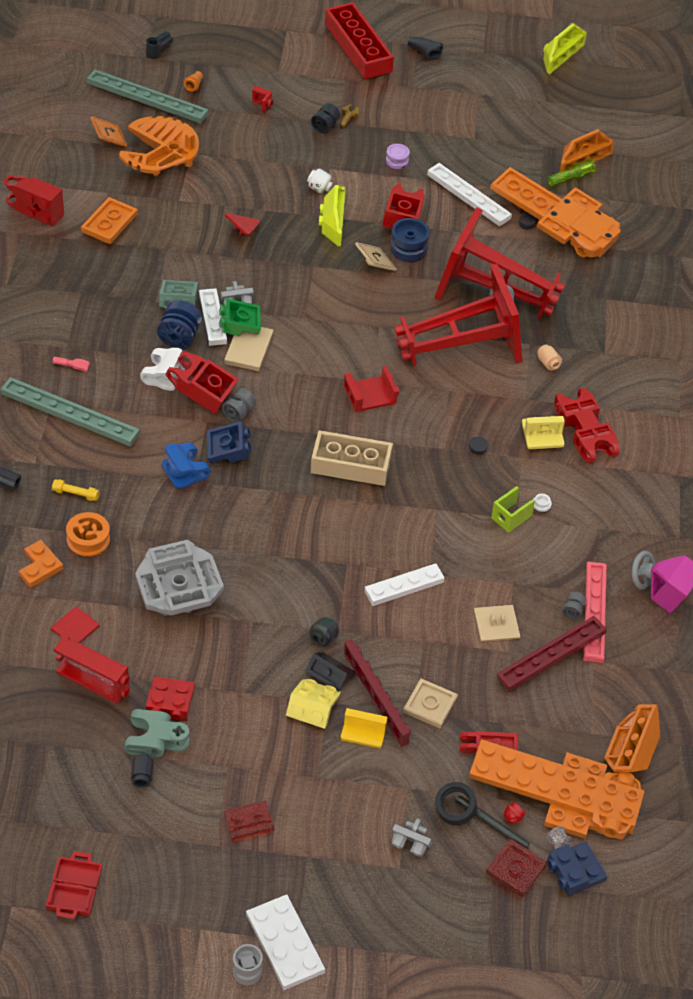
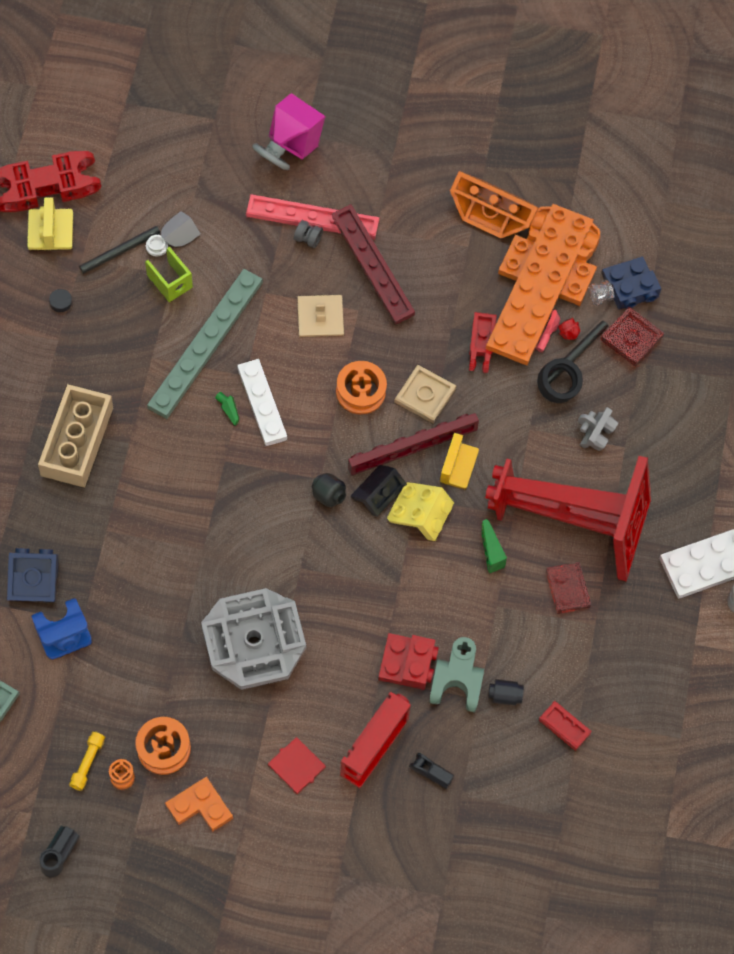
camera: 85 degrees left, 15 degrees up
(63, 509) = (121, 779): none -> orange wheel
(68, 720) = (435, 773): none -> black bar
(74, 886) = (657, 770): red piece -> none
(113, 818) = (565, 725): none -> red plate
(280, 755) = (493, 551): none -> green slope
(310, 844) = (592, 509): none -> red piece
(396, 561) = (229, 407): none -> green bar
(437, 647) = (360, 400): none -> orange wheel
(456, 543) = (205, 344): none -> sand green plate
(522, 801) = (551, 327): none -> coral piece
(533, 479) = (118, 250): none -> pearl dark grey bar
(558, 516) = (179, 230): none -> light grey brick

